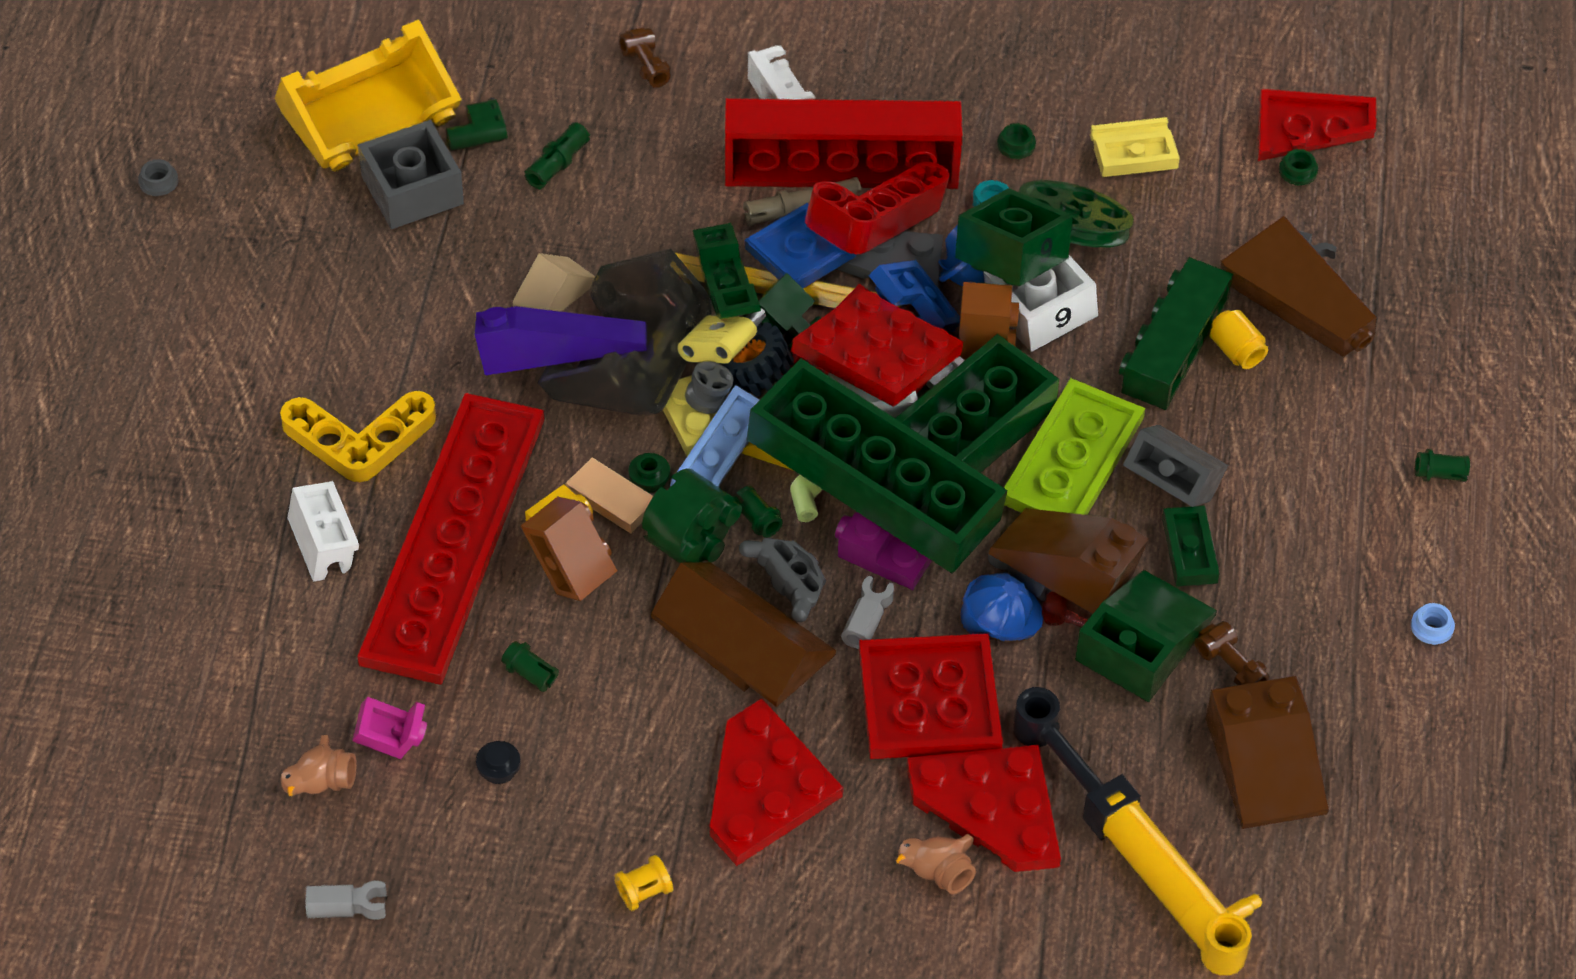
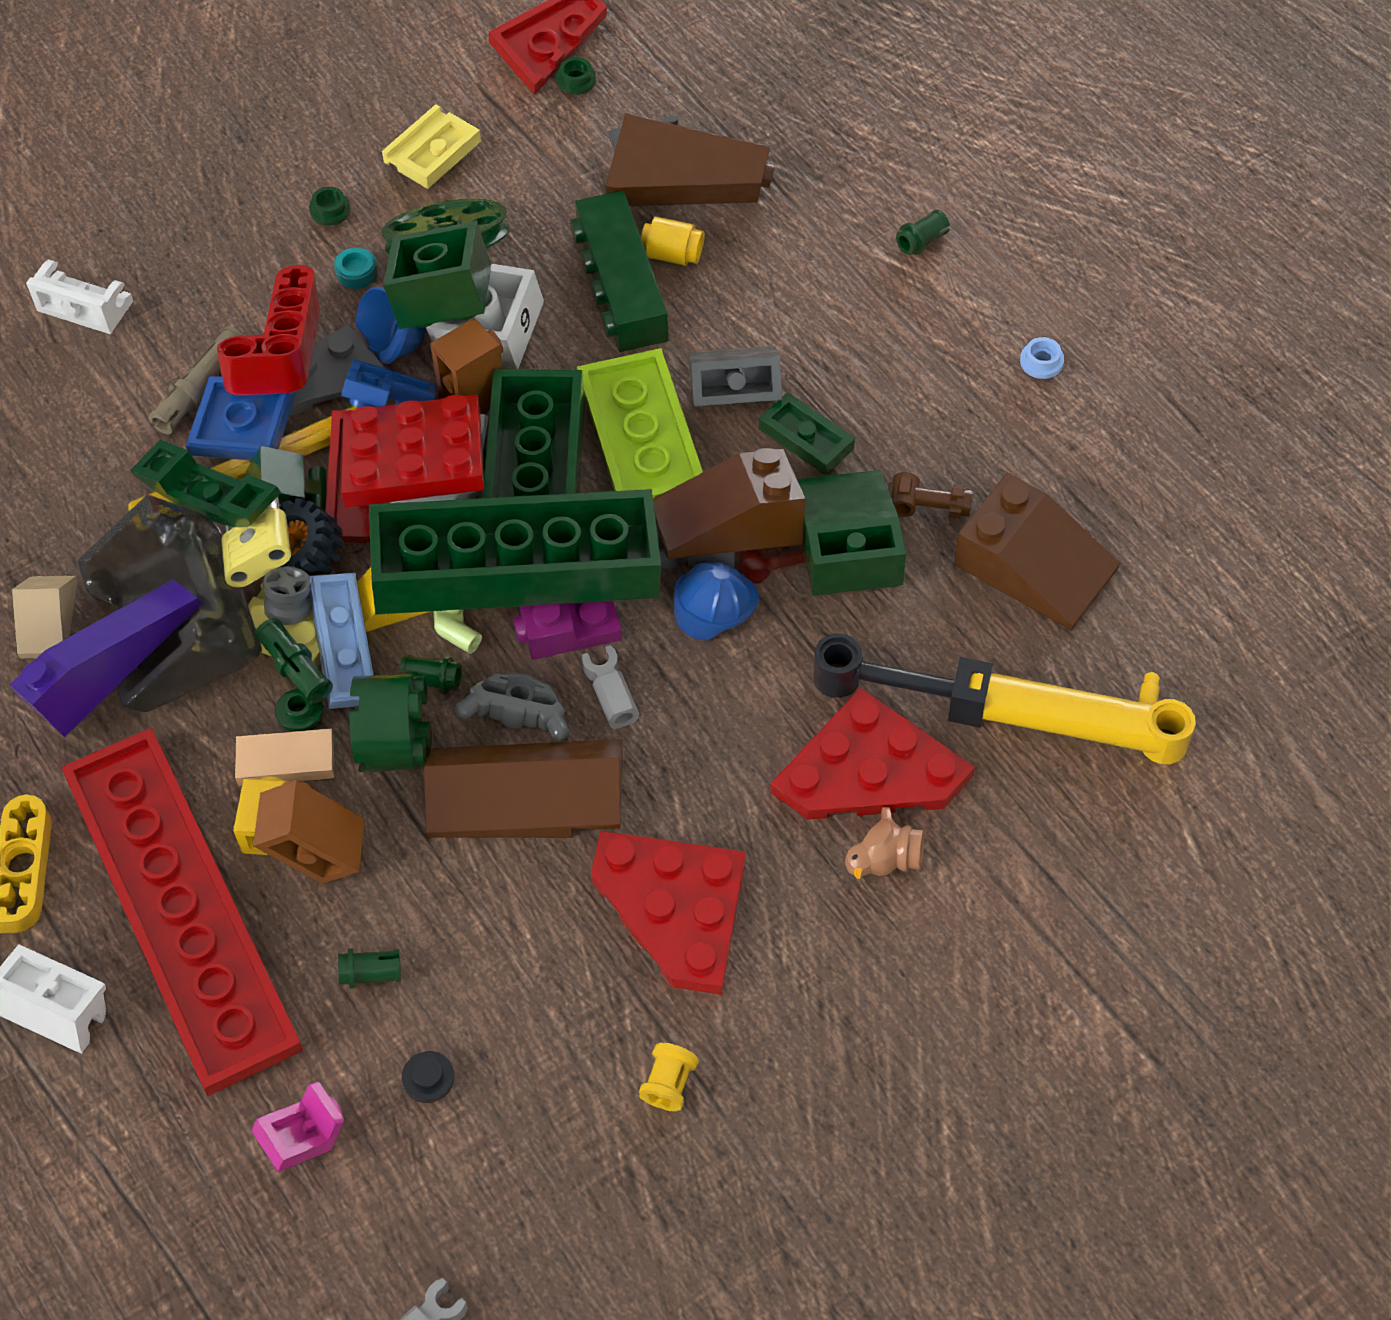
camera: 40 degrees left, 5 degrees up
(320, 770) = (274, 1225): nougat animal -> none
(671, 433) = (293, 660): none -> dark green pin
(837, 140) = (184, 305): red brick -> none
(929, 695) = (734, 717): red plate -> none

